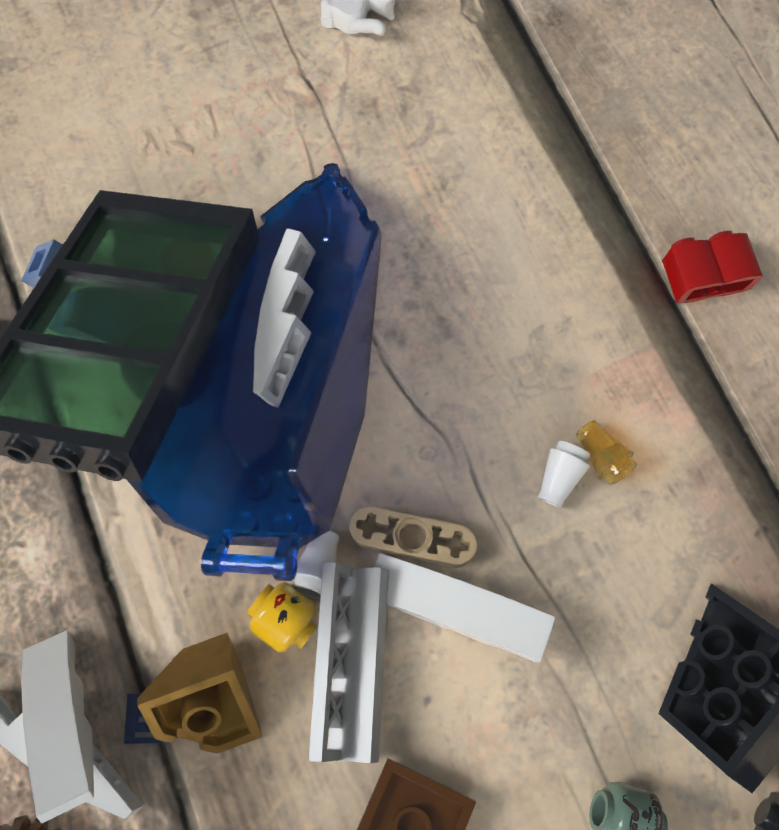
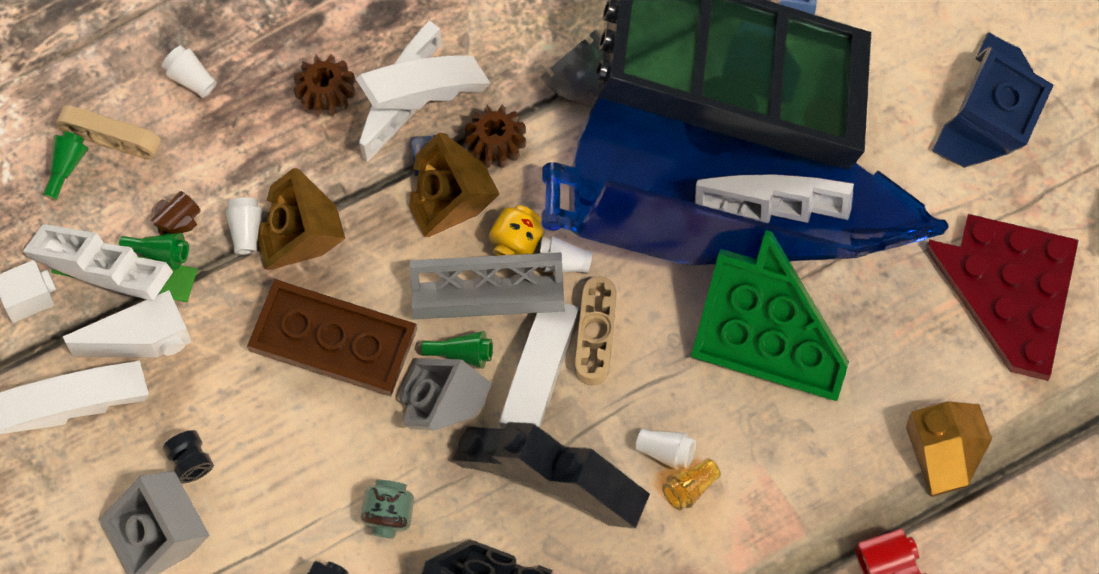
camera: 90 degrees right, 5 degrees down
(75, 513) = (576, 71): none -> dark grey cylinder
(127, 630) = (494, 125): none -> reddish brown gear
(213, 89) = (997, 108): none -> dark blue piece
(406, 118) = (1012, 287): none -> dark red wing
(424, 694) = (471, 348): none -> green cone
(437, 343) = (768, 325): none -> green wing
(490, 737) = (442, 393): none -> light grey slope
(570, 201) = (948, 444): none -> pearl gold slope
(601, 614) = (570, 473): none -> black arch

